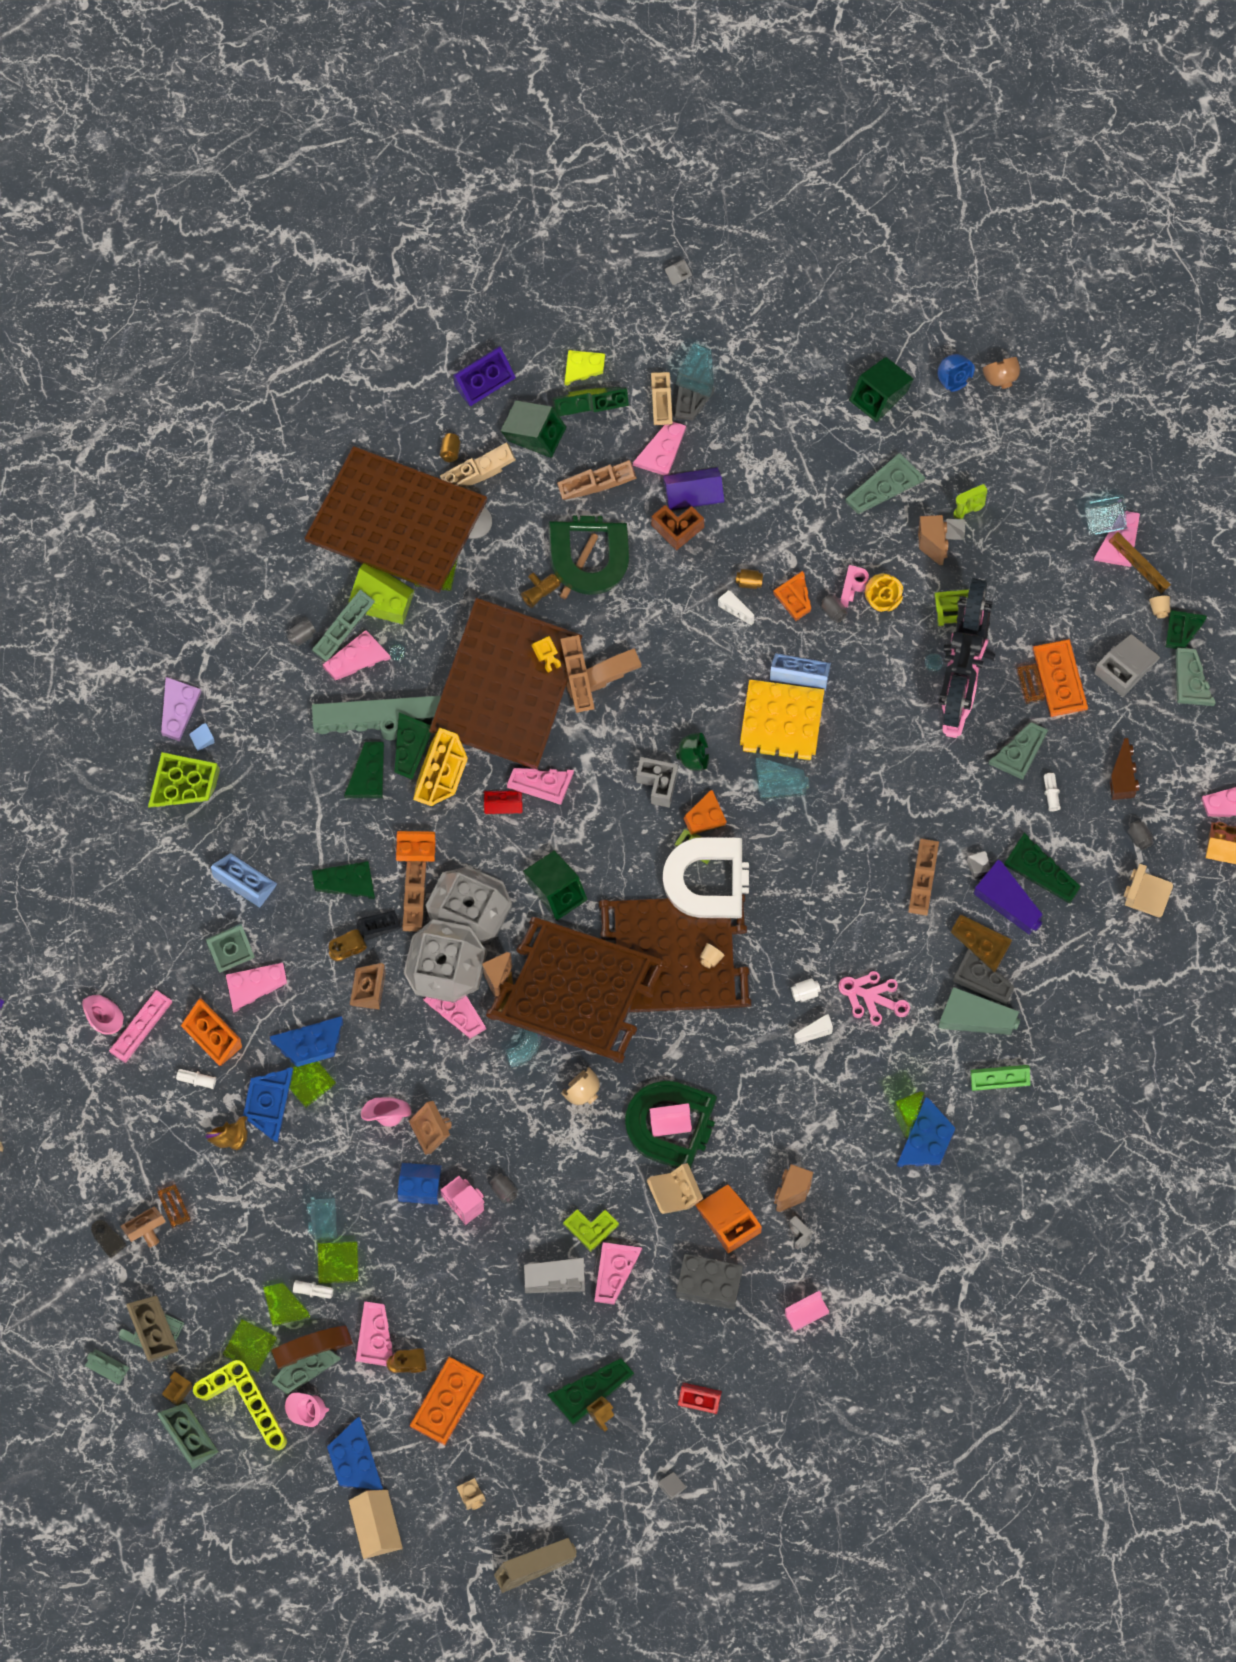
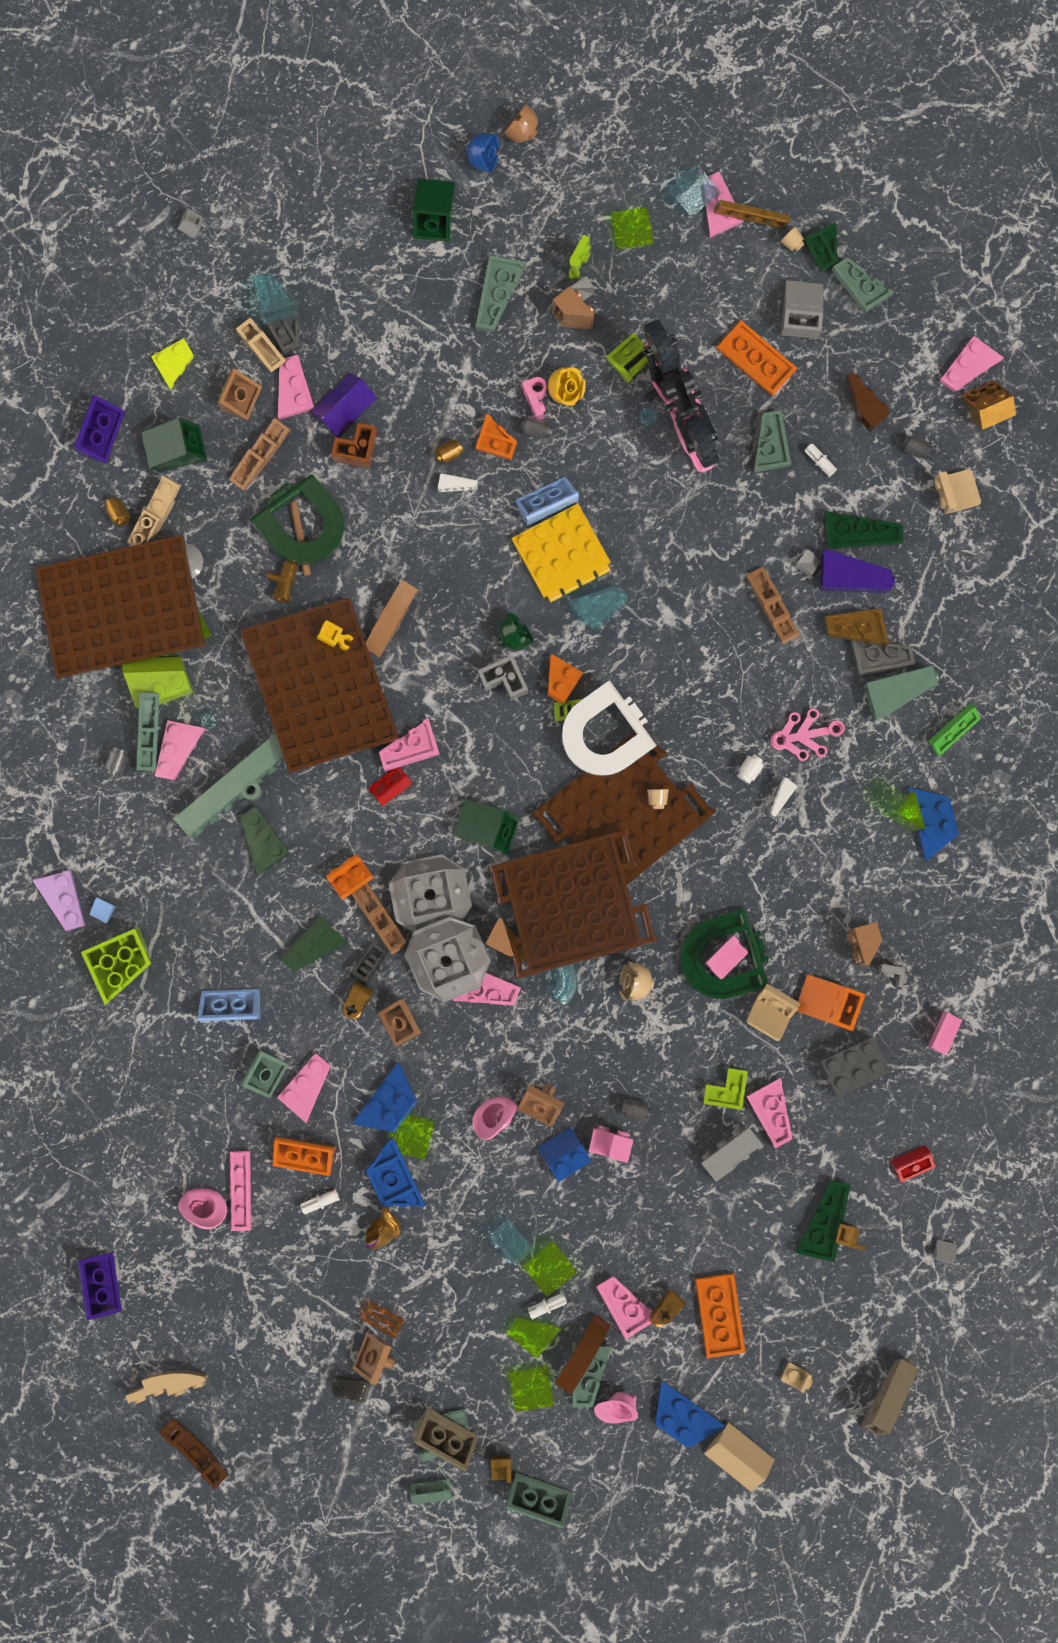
camera: 40 degrees left, 15 degrees up
(249, 1398) = (564, 1435): neon yellow beam -> none
(411, 743) = (280, 792): dark green wing -> none
(441, 768) = (321, 798): yellow wedge -> none
(577, 674) = (371, 634): medium nougat slope -> none
(591, 400) = (202, 387): dark green slope -> none
(614, 424) = (239, 395): none -> medium nougat slope
(1033, 510) = (632, 228): none -> clear neon green plate
(1034, 698) = (731, 384): clear orange tile -> none

